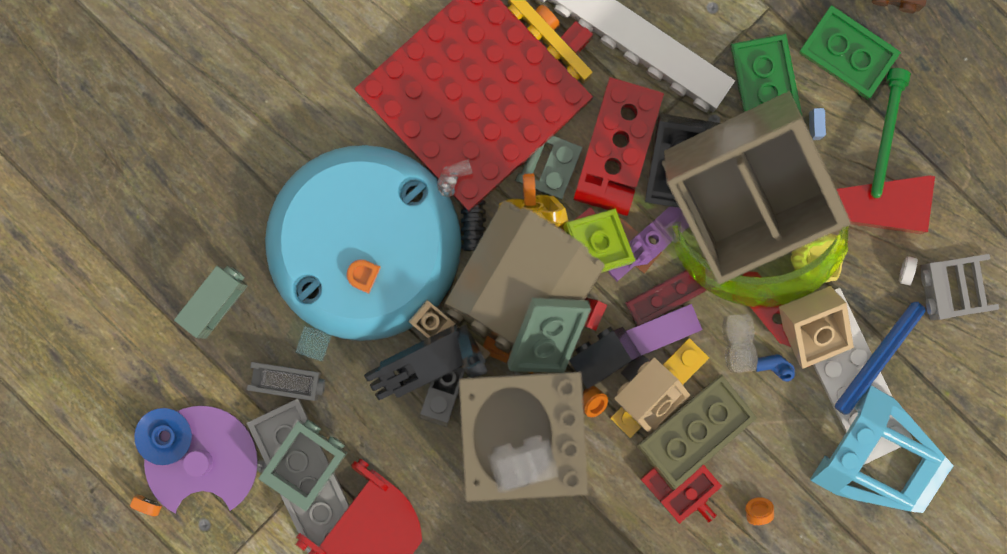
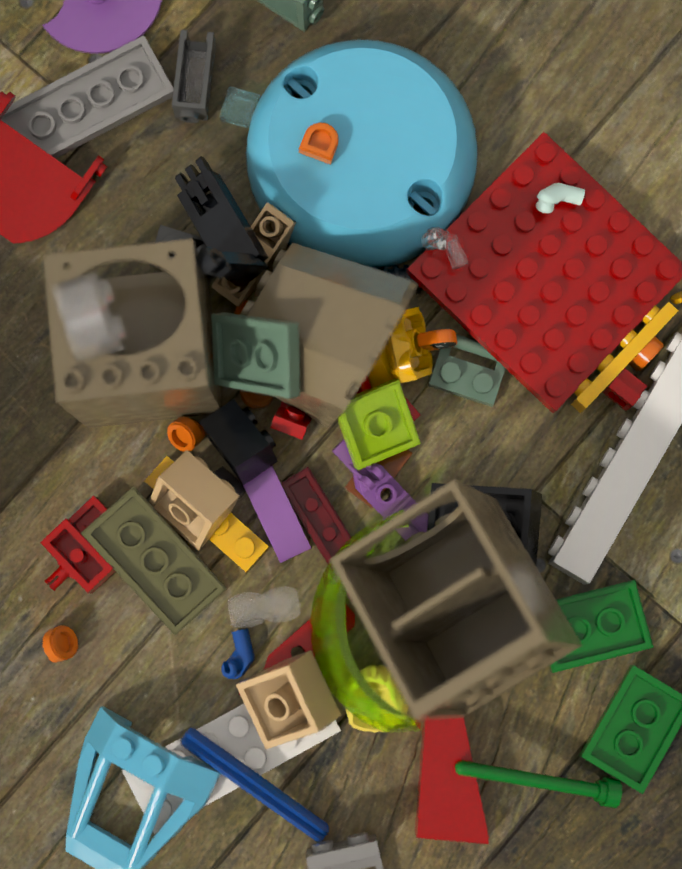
camera: 85 degrees right, 5 degrees down
(286, 488) = (67, 80): sand green window -> none
(412, 82) = (556, 193): none -> light aqua arm
(595, 184) = (444, 450): red hinge -> none
(817, 123) = (543, 691): light blue tile -> none
(908, 270) = (367, 816): white tile -> none

